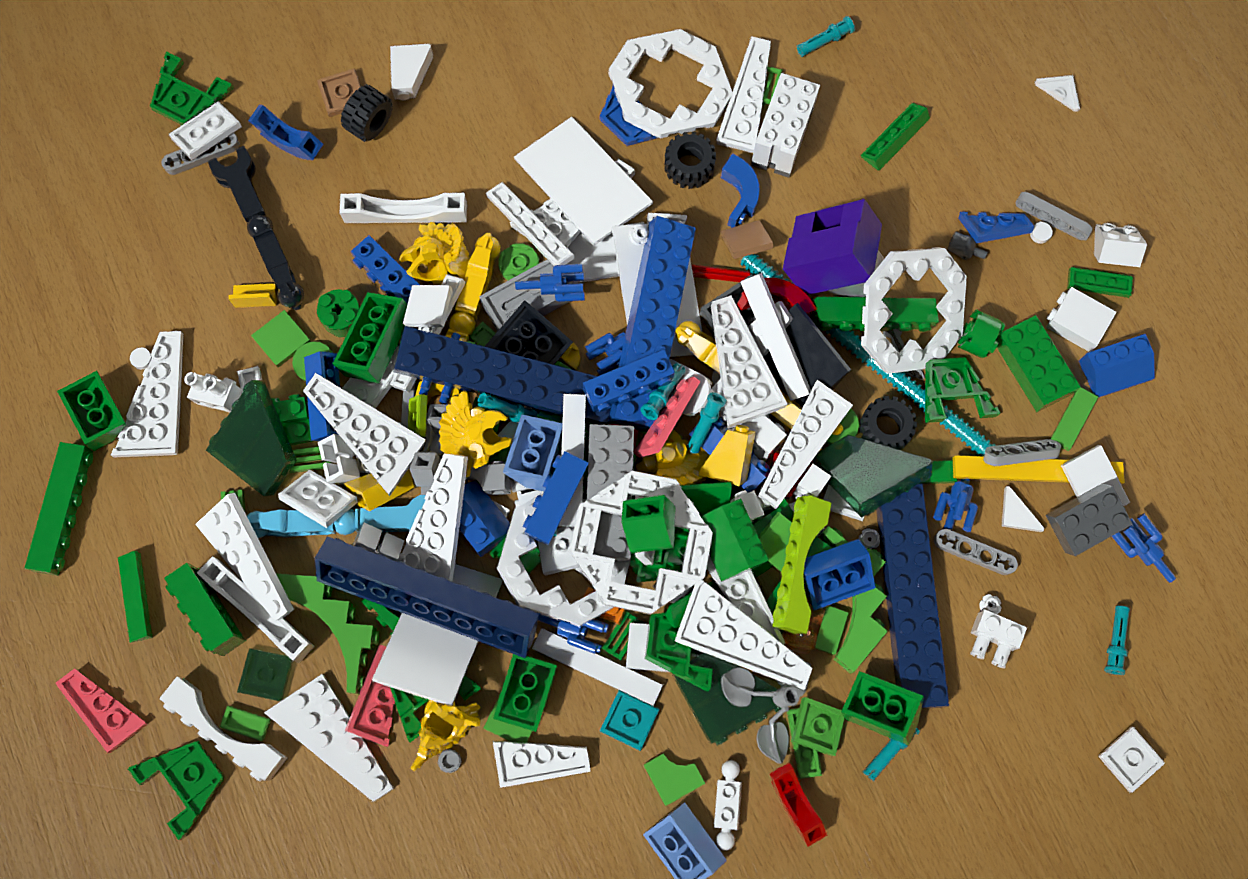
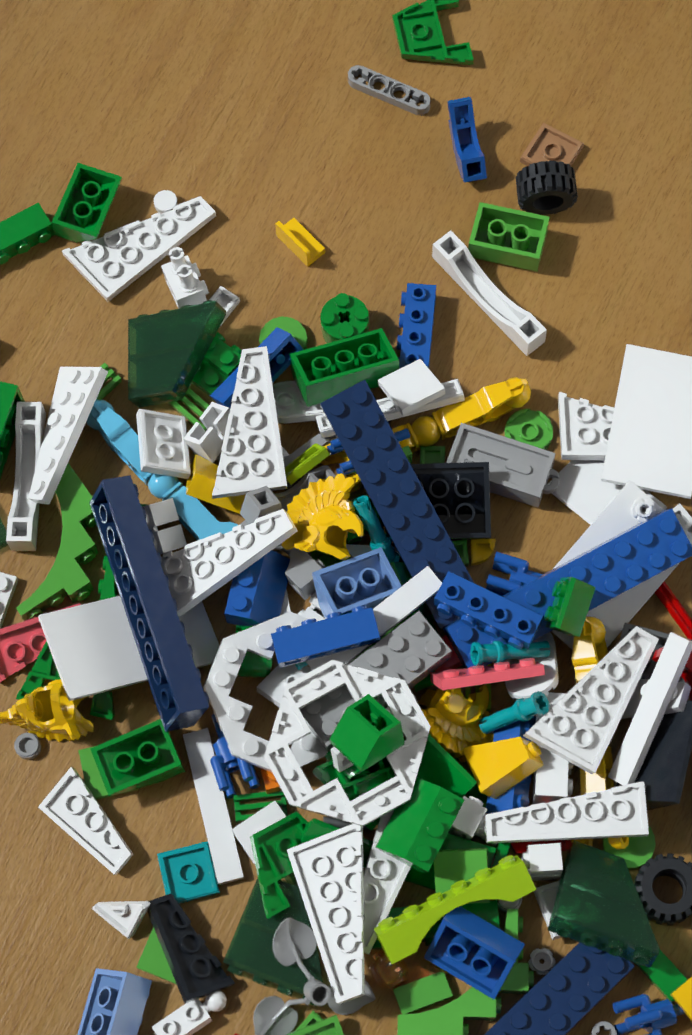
camera: 55 degrees right, 5 degrees down
(205, 130) = (411, 76): white tile -> none
(259, 226) = (364, 192): black piece -> none
(280, 338) = (280, 295): bright green tile -> none
(377, 163) = (508, 236): none -> bright green brick
(409, 68) = (625, 187): white slope -> none
(440, 251) = (477, 355): yellow piece -> none
(530, 225) = (569, 411): white tile -> none
(557, 284) = (530, 477): blue plant -> none
(623, 788) = (123, 915): none -> white tile
(668, 329) = (569, 606): none -> green slope
(690, 765) = (189, 959): none -> black wing

